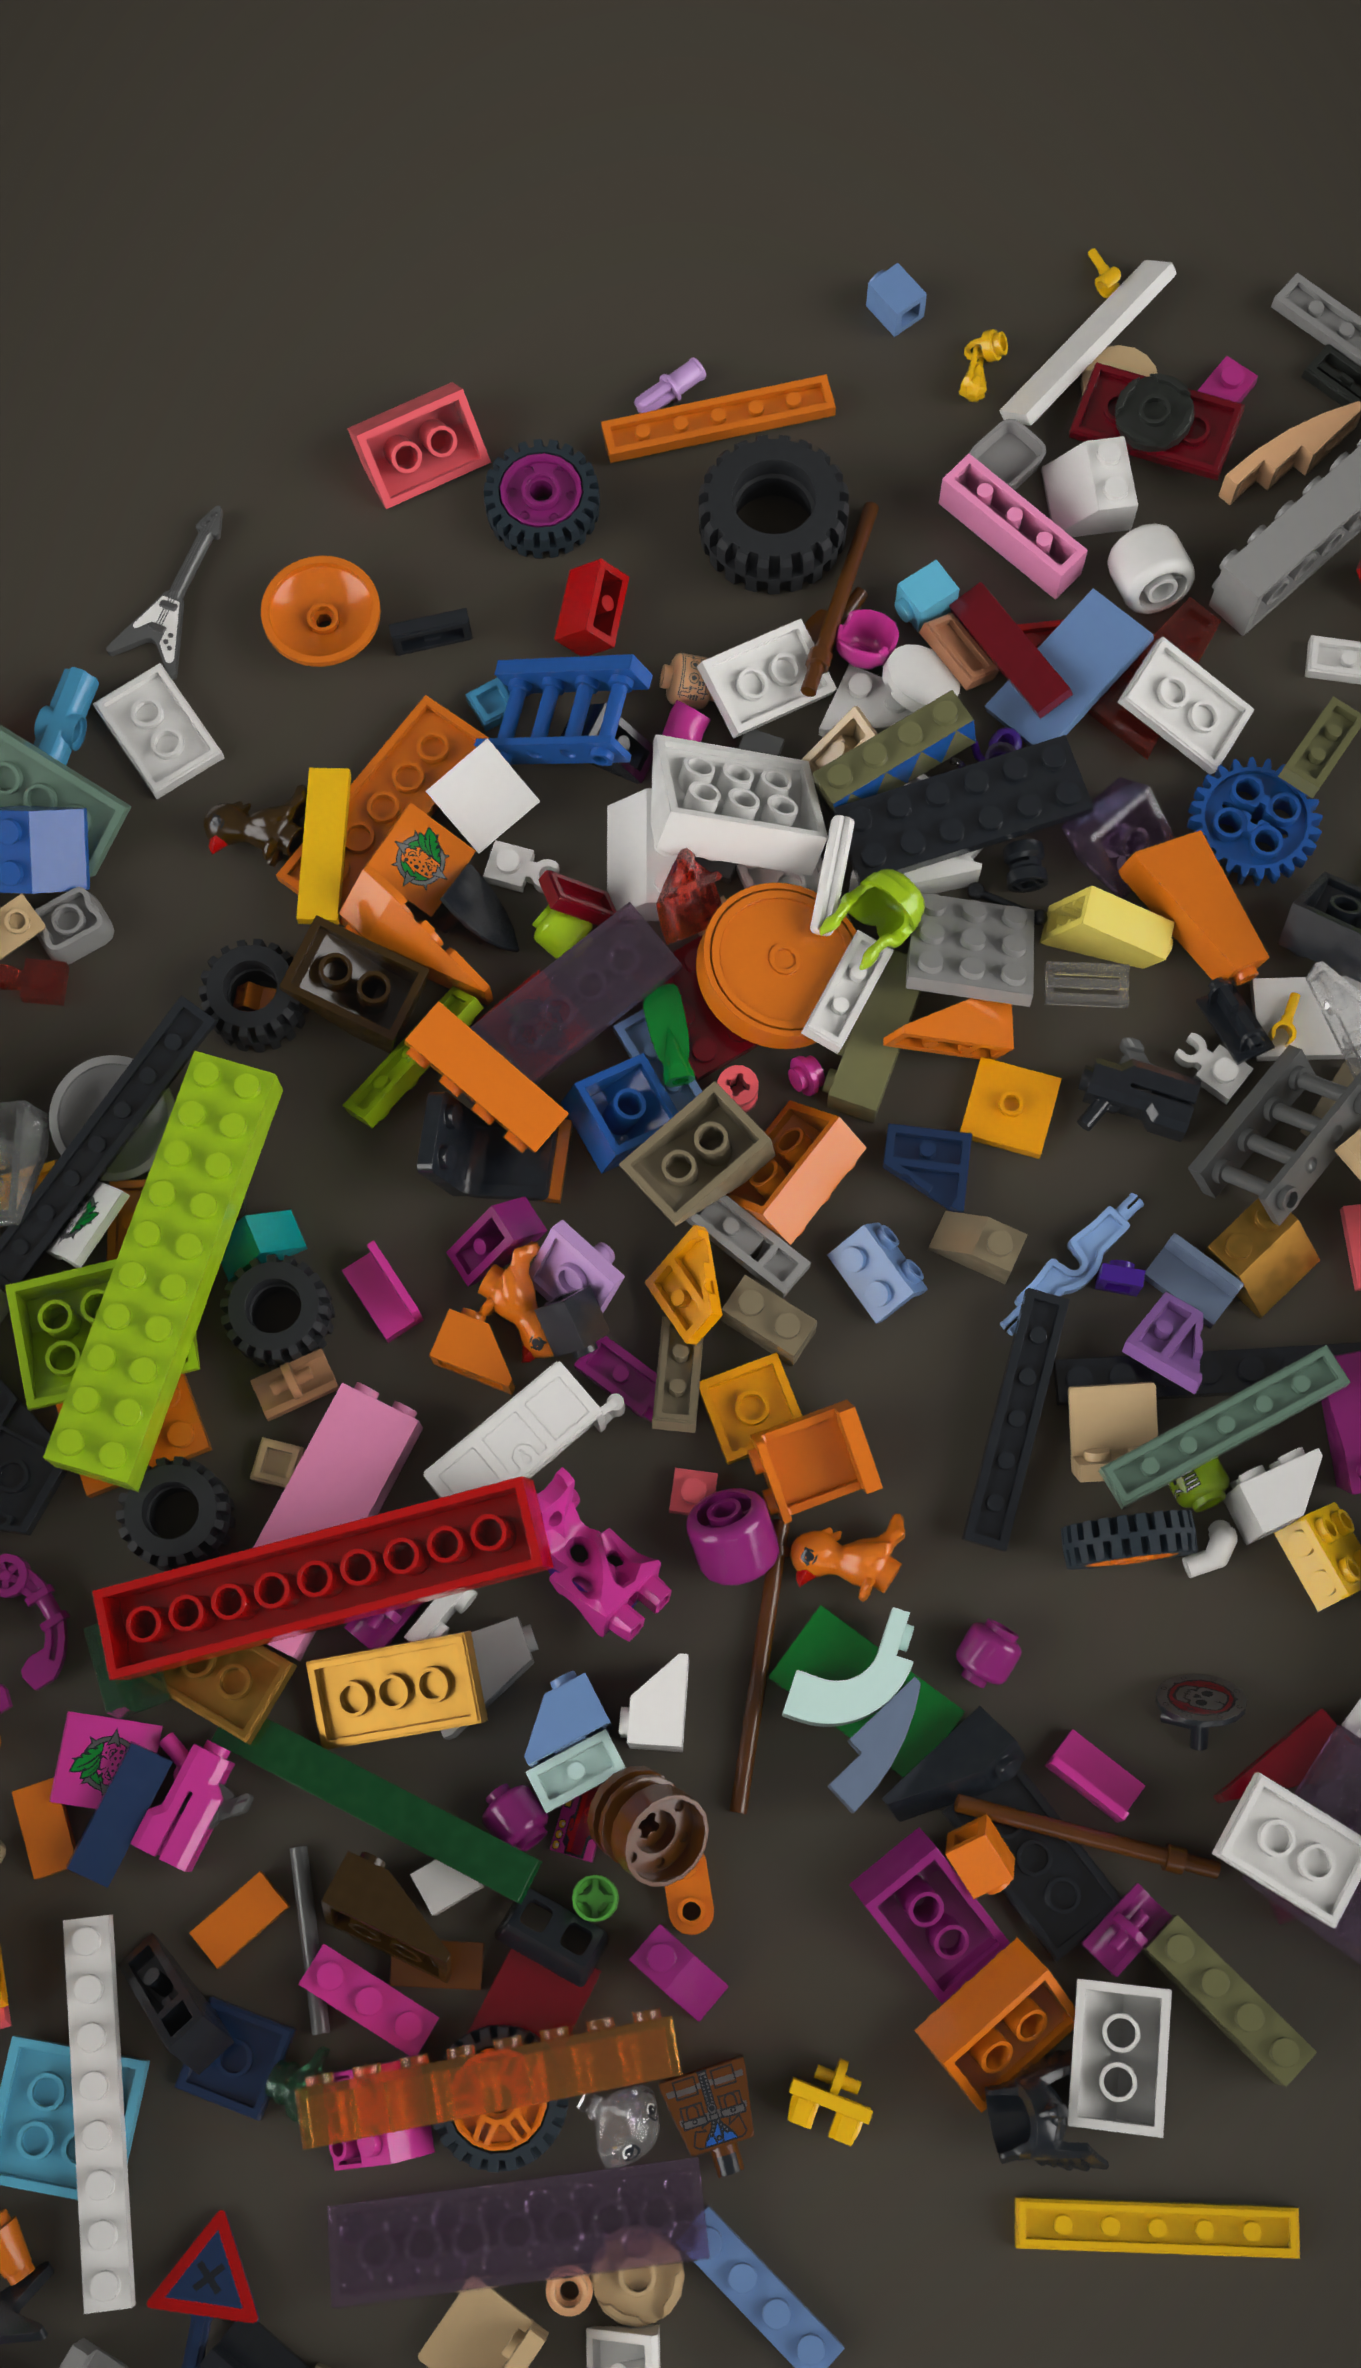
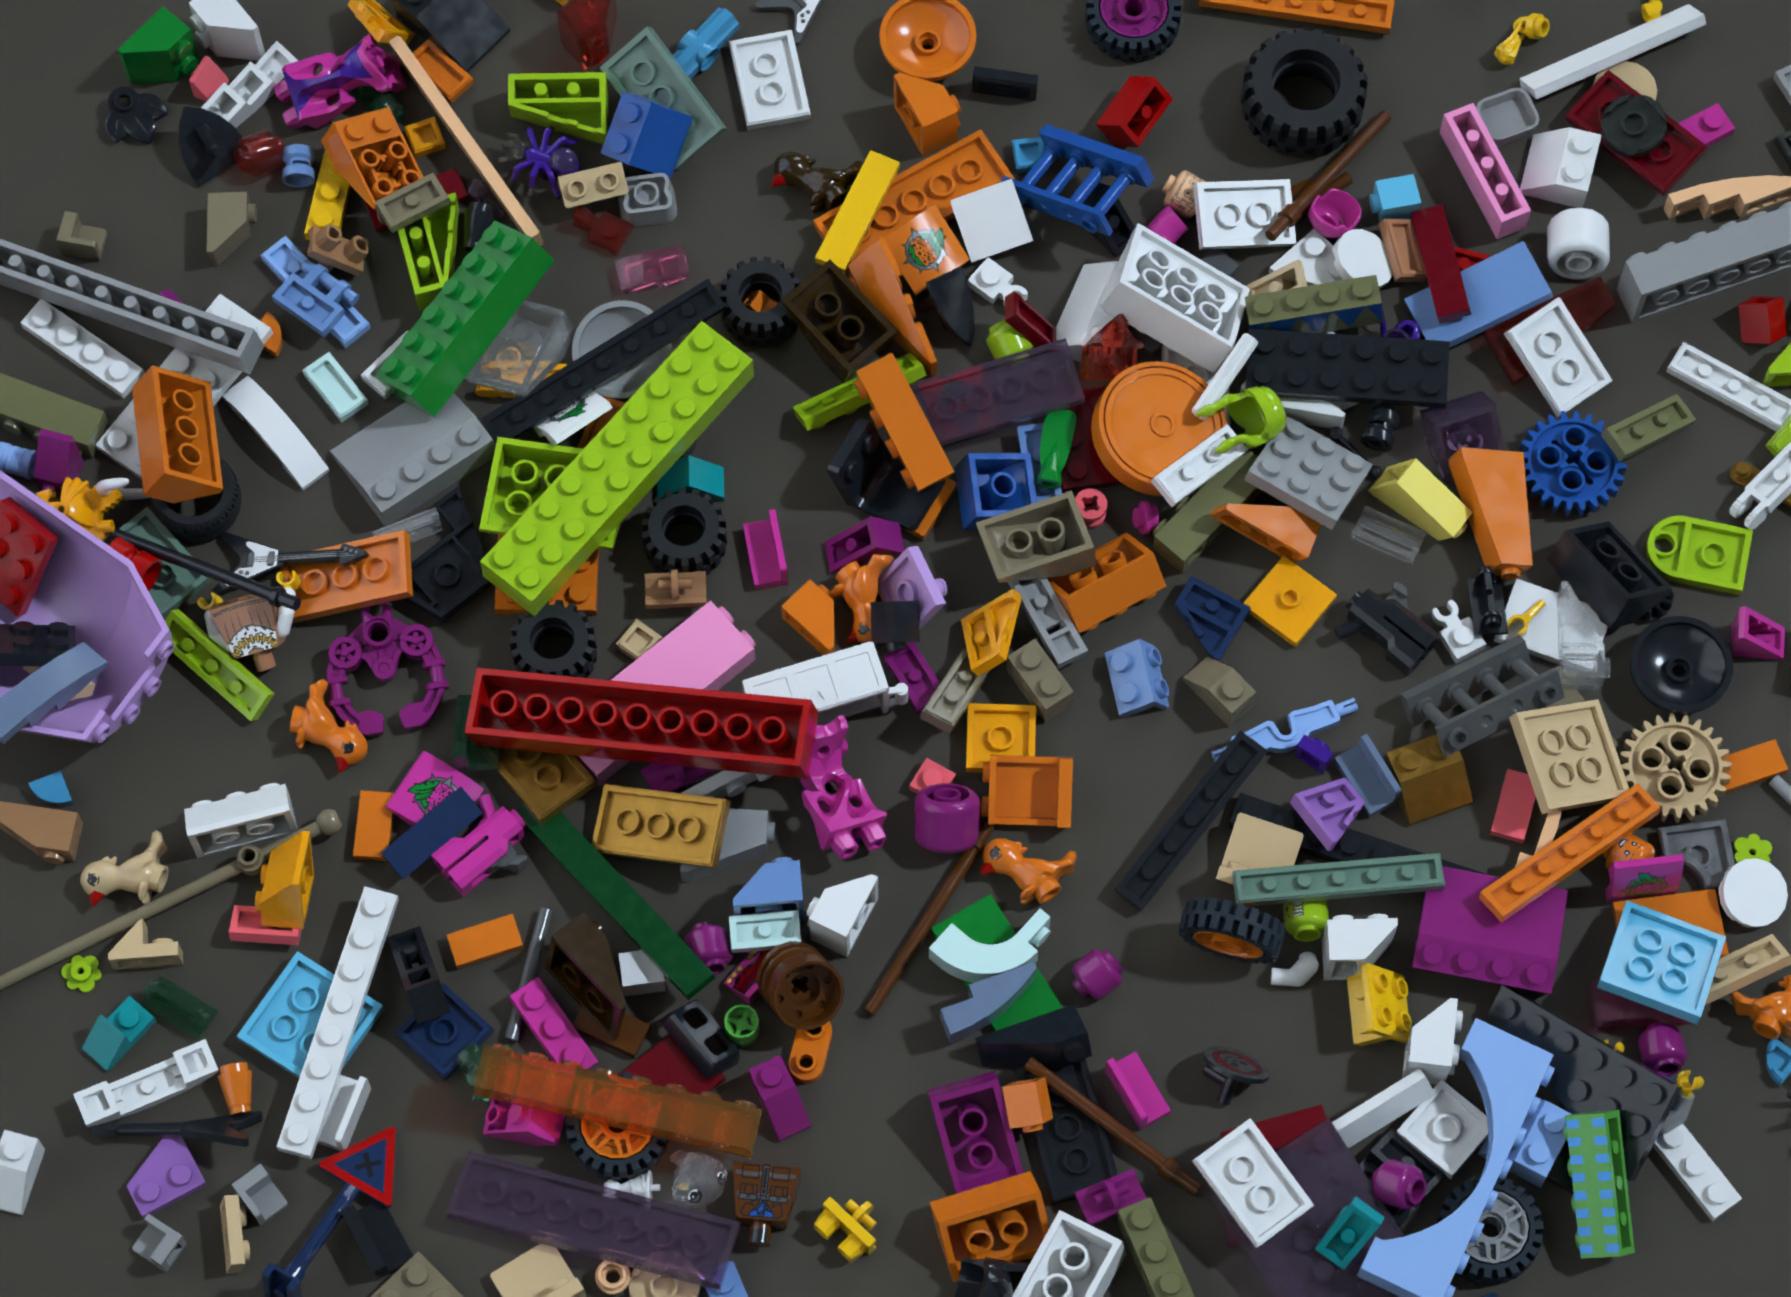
camera: 20 degrees right, 5 degrees down
(108, 1004) = (652, 267): none -> clear pink slope
(152, 2219) = (344, 1112): none -> white panel
(355, 698) = (926, 112): none -> orange slope
(554, 2162) = (639, 1185): none -> white piece

